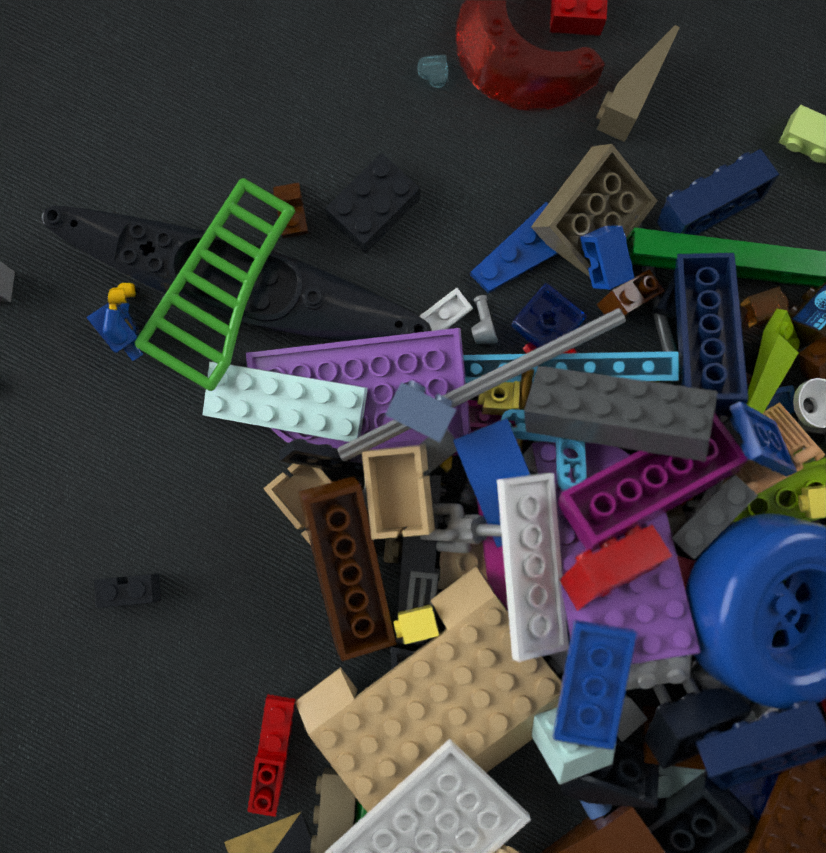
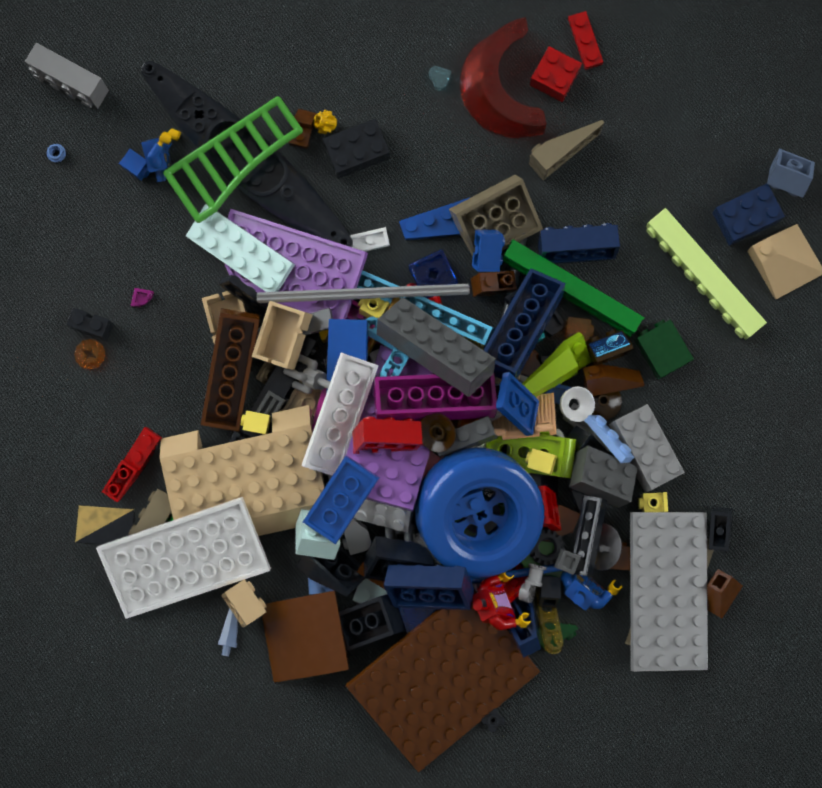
camera: 30 degrees right, 0 degrees up
(92, 352) = (135, 164): none -> blue brick
(154, 620) = (91, 362): none -> clear orange gear
(180, 522) = (141, 297): none -> magenta tile
(316, 187) = (325, 122): none -> yellow gear
(421, 411) = (314, 291): sand blue brick -> none
(484, 330) = (390, 263): light grey bar -> none
(687, 539) = (432, 438): none -> dark brown dish

